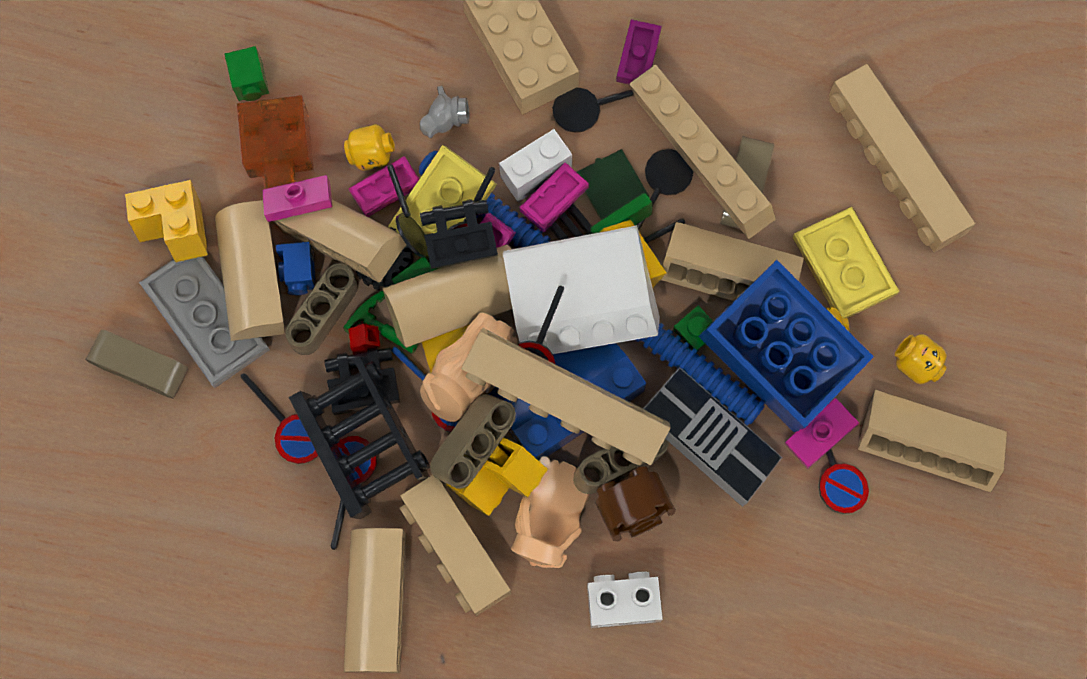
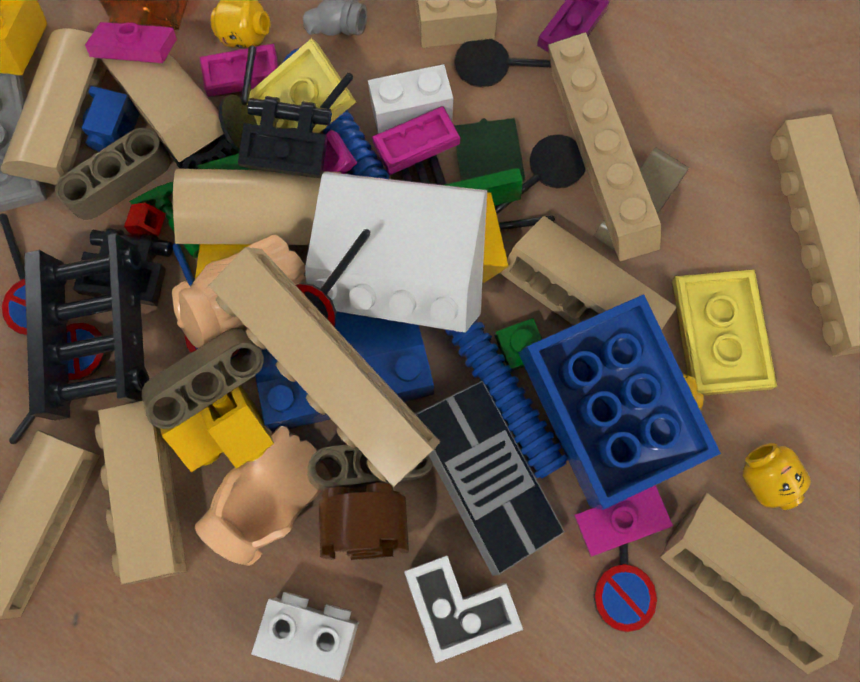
camera: 20 degrees right, 0 degrees up
(725, 547) = (457, 622): none -> white brick

